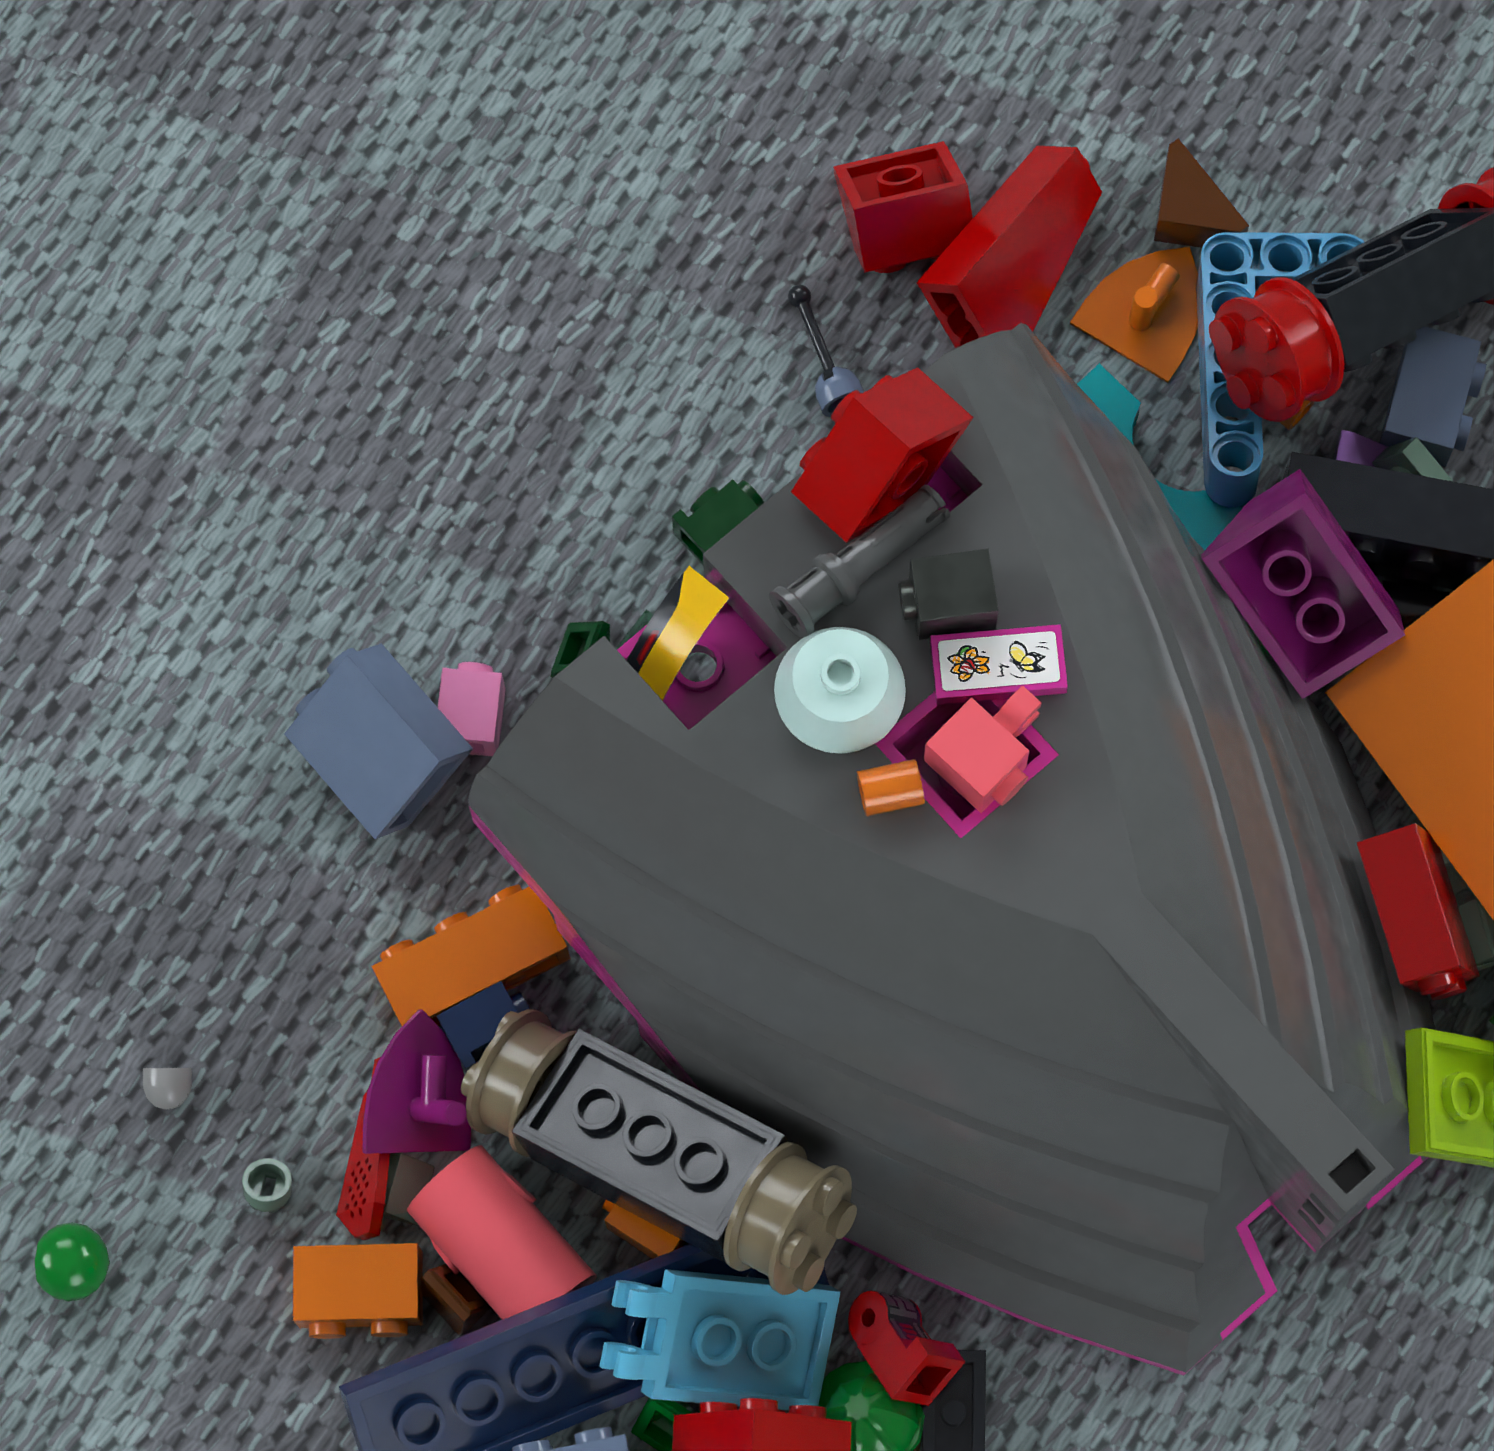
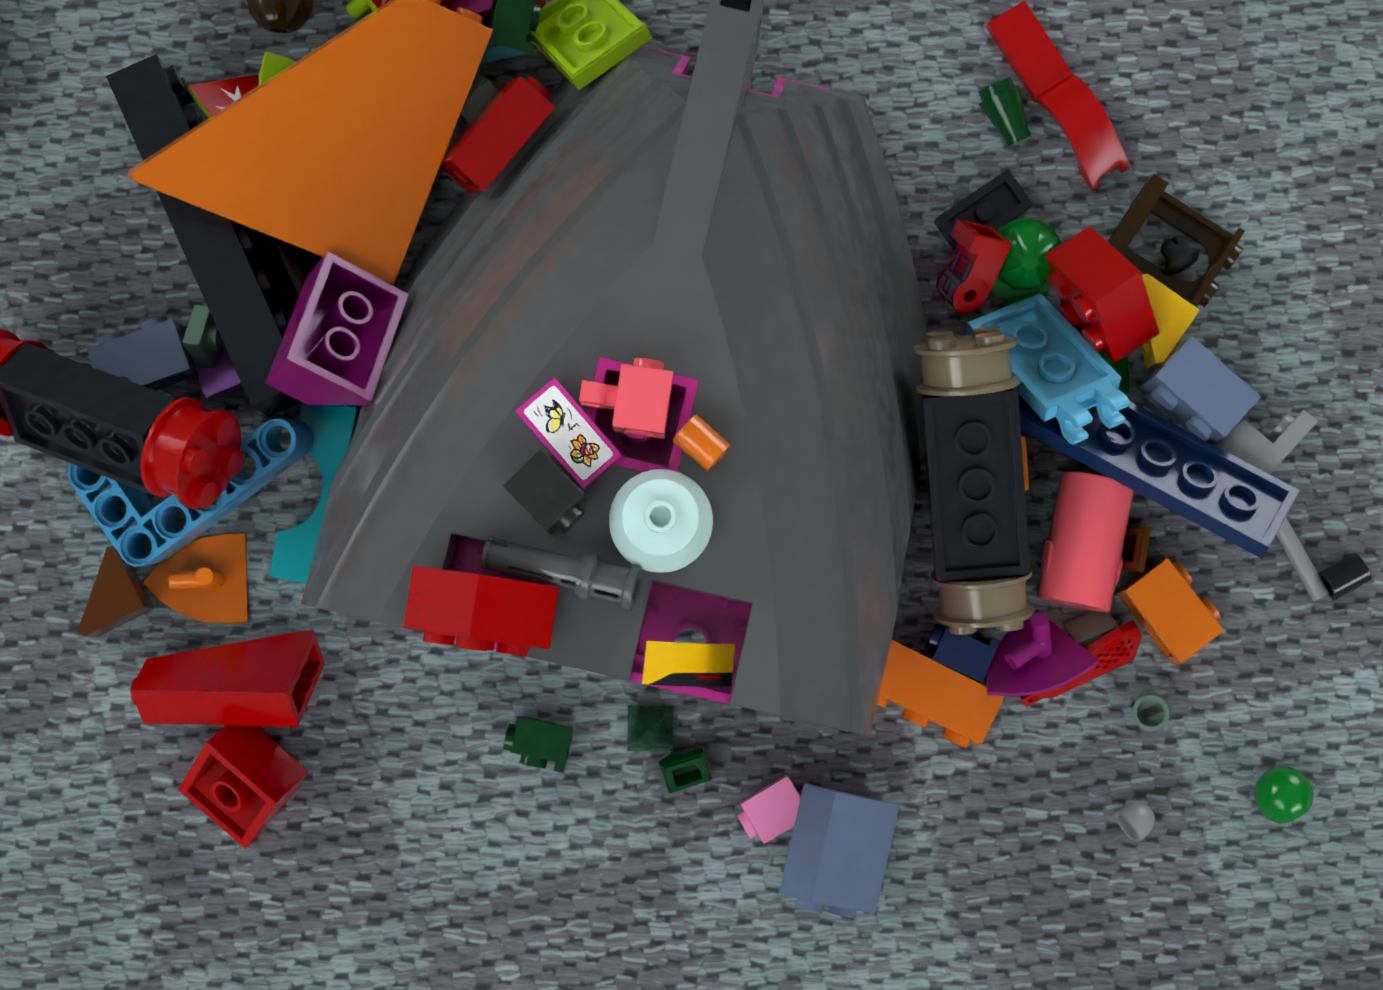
camera: 130 degrees left, 10 degrees up
(834, 382) = (396, 736): hinge -> none

